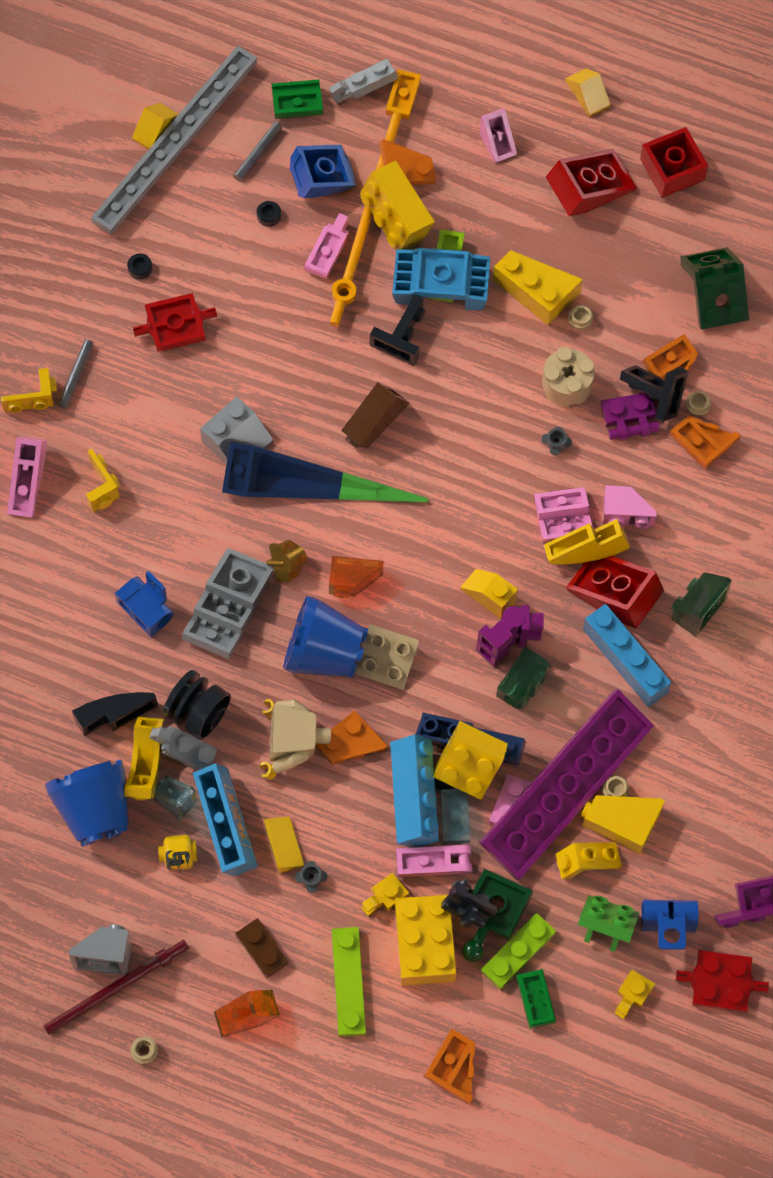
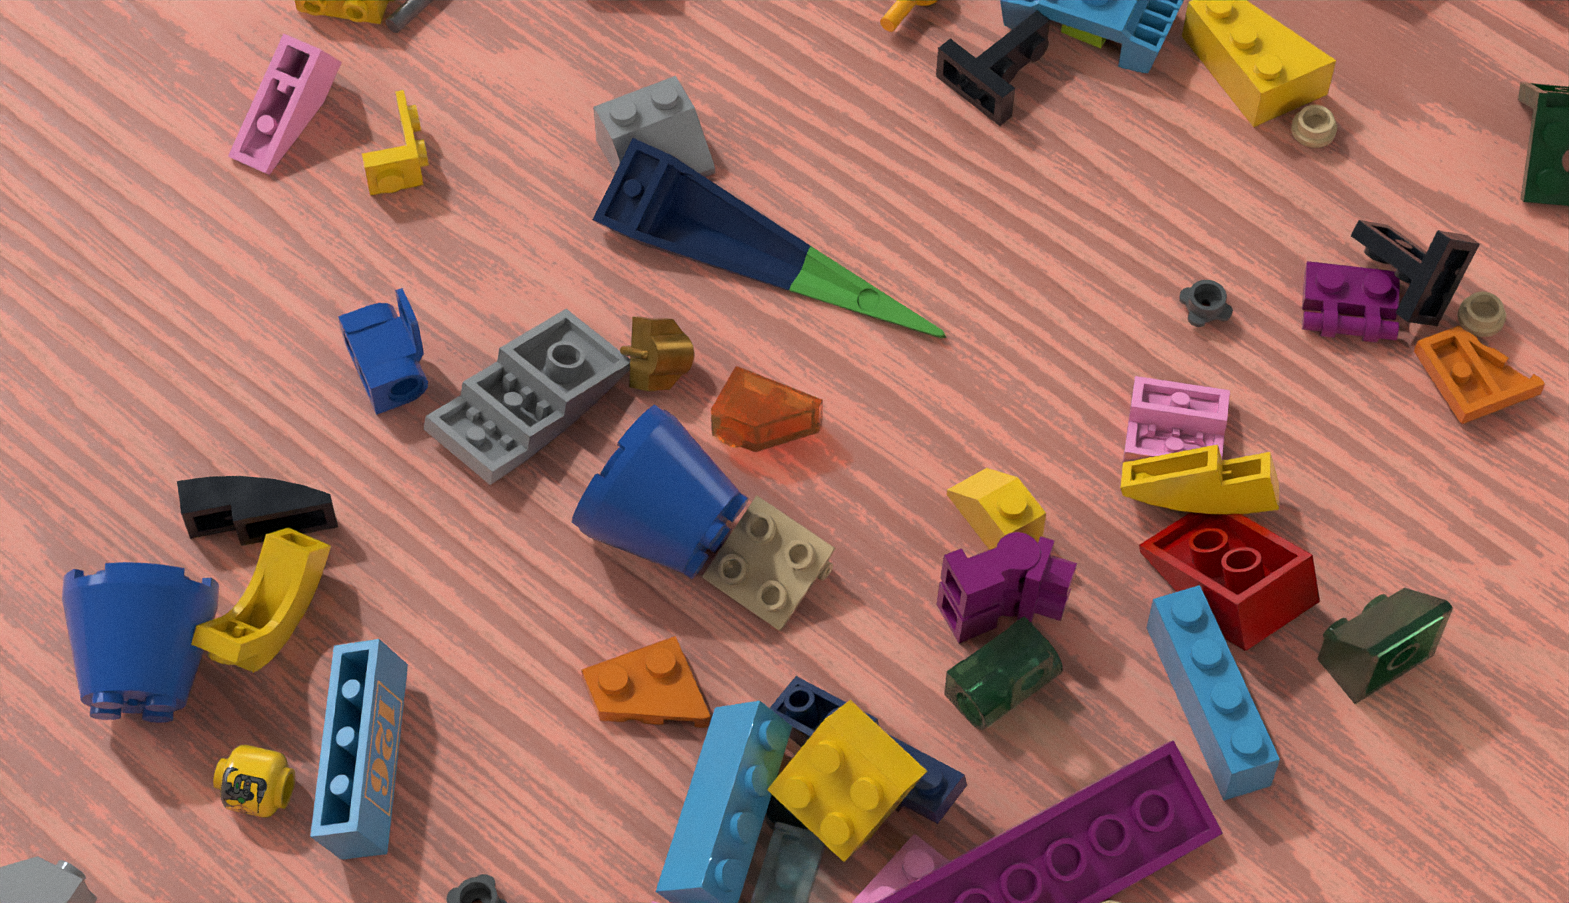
camera: 20 degrees right, 10 degrees down
(175, 796) = (294, 687): clear light blue slope -> none
(184, 747) = (340, 597): light grey hinge -> none
(196, 704) = (394, 536): black wheel -> none
(283, 844) = (451, 828): yellow slope -> none
(291, 736) = (539, 642): tan torso -> none
(374, 415) = (898, 173): reddish brown slope -> none
(568, 377) = (1259, 207): tan brick -> none
(627, 507) = (1298, 443): bright pink slope -> none
(671, 356) = (1469, 217): orange wing -> none

